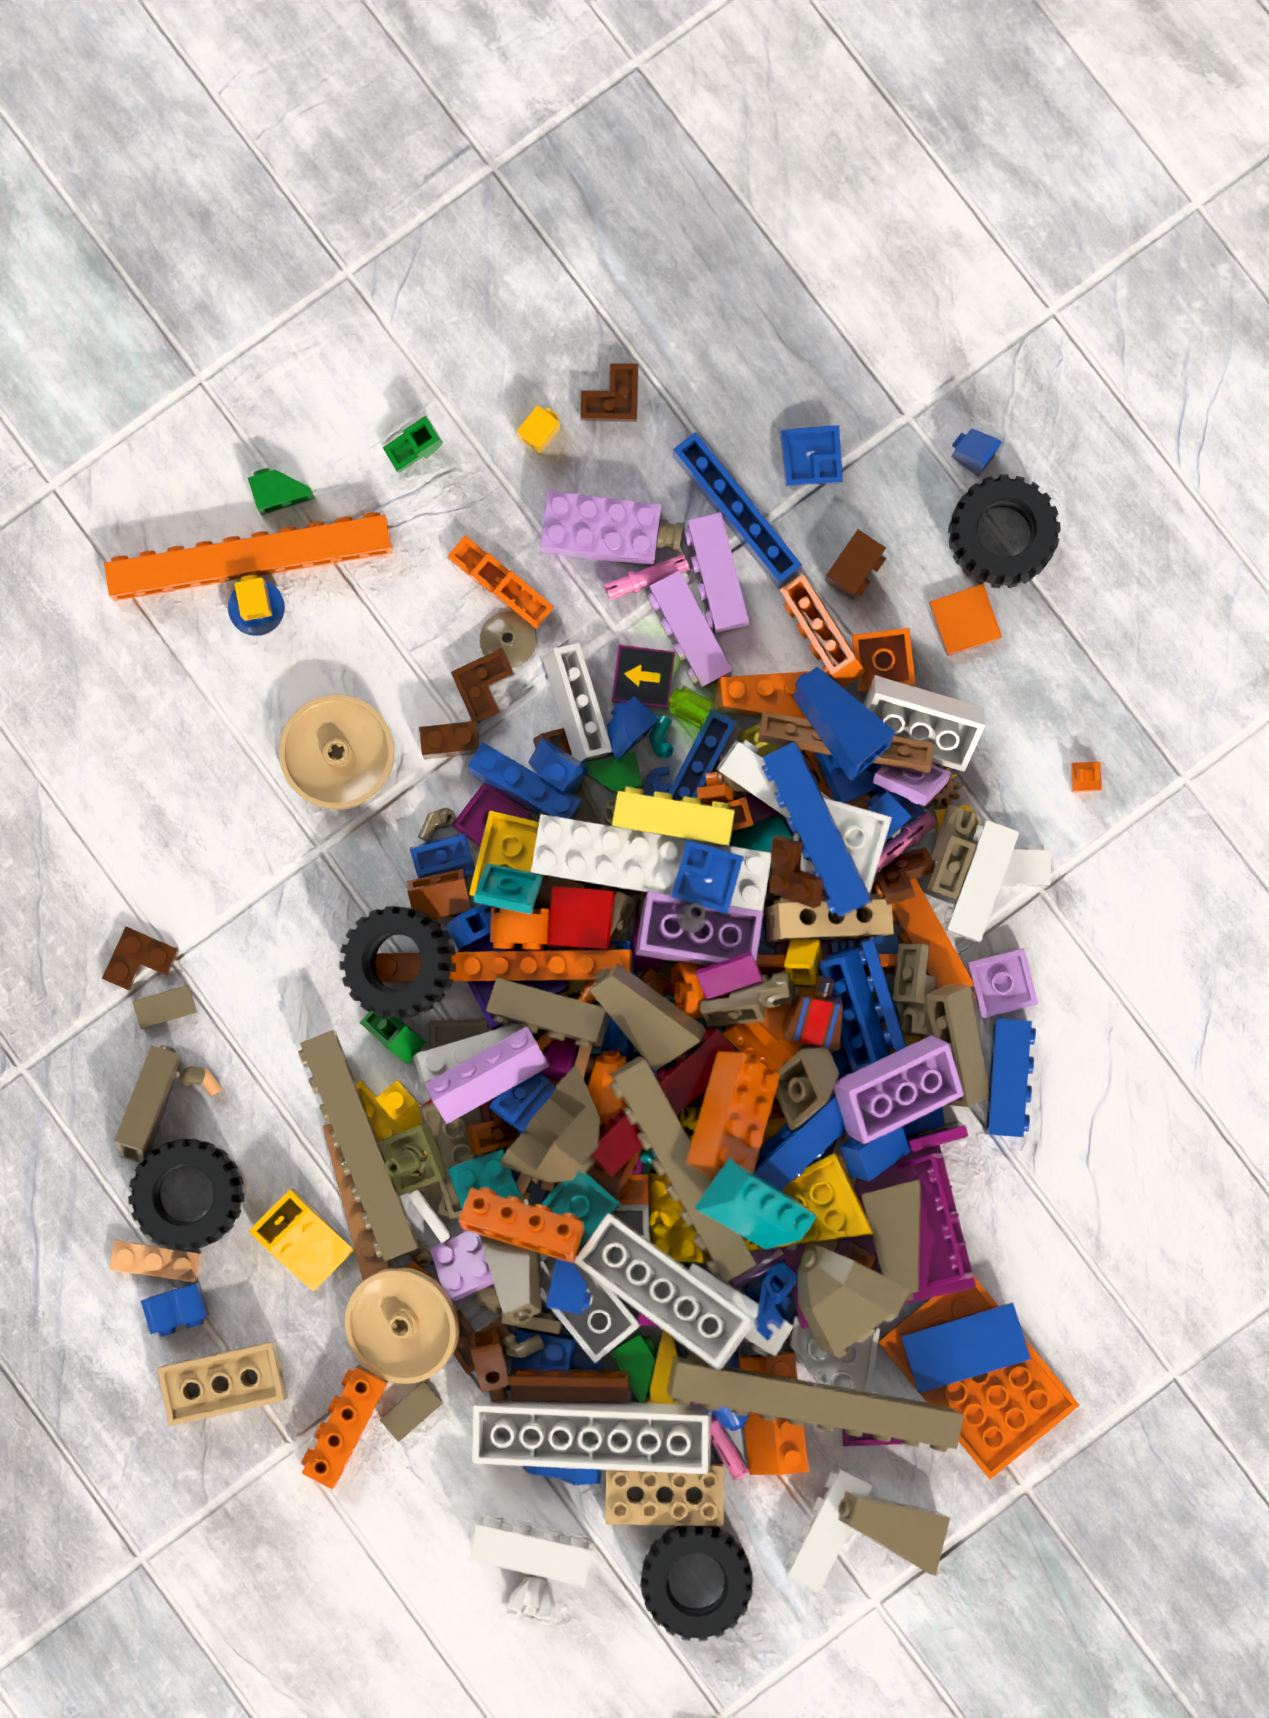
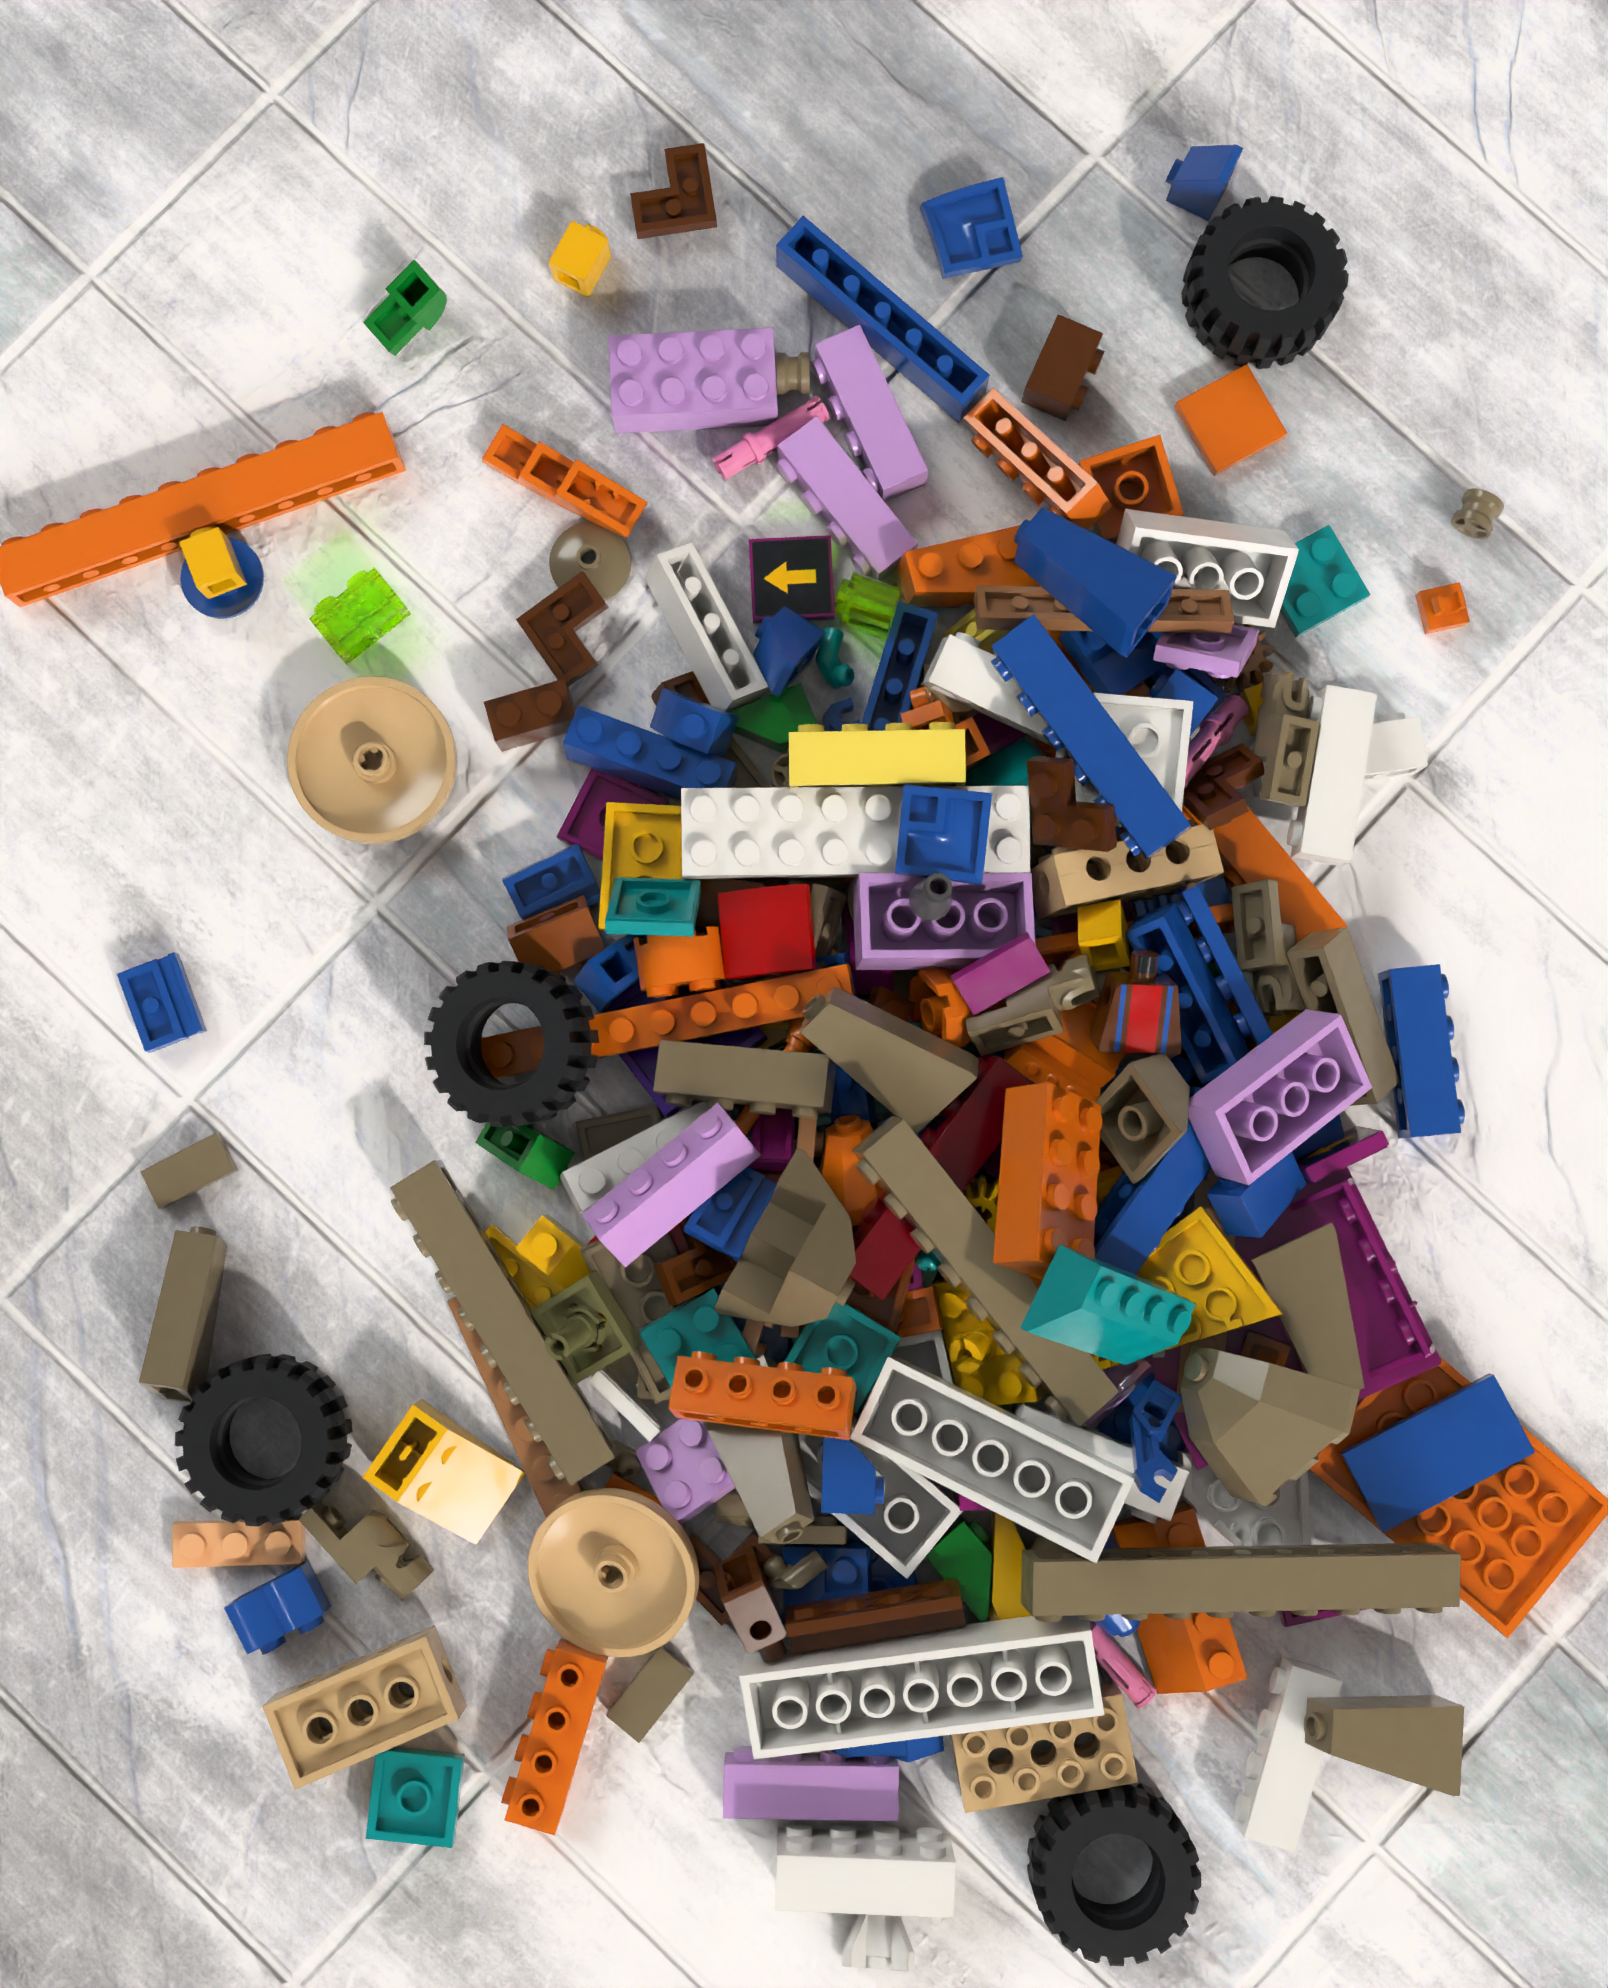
camera: 15 degrees left, 0 degrees up
(137, 950) = (130, 1100): reddish brown plate -> none
(166, 890) = (161, 1002): none -> blue plate
(201, 1076) = (259, 1261): arm -> none
(242, 1279) = (368, 1545): none -> dark tan plate
(244, 1449) = (415, 1797): none -> teal plate
(277, 491) = (225, 409): green slope -> none
(344, 649) = (359, 614): none -> clear neon green brick
(434, 821) = (533, 834): dark tan arm -> none
(506, 1490) = (810, 1787): none -> lavender brick
(1002, 983) = (1385, 918): lavender plate -> none
(1003, 743) = (1320, 583): none -> teal plate
(1121, 716) = (1477, 513): none -> dark tan wheel

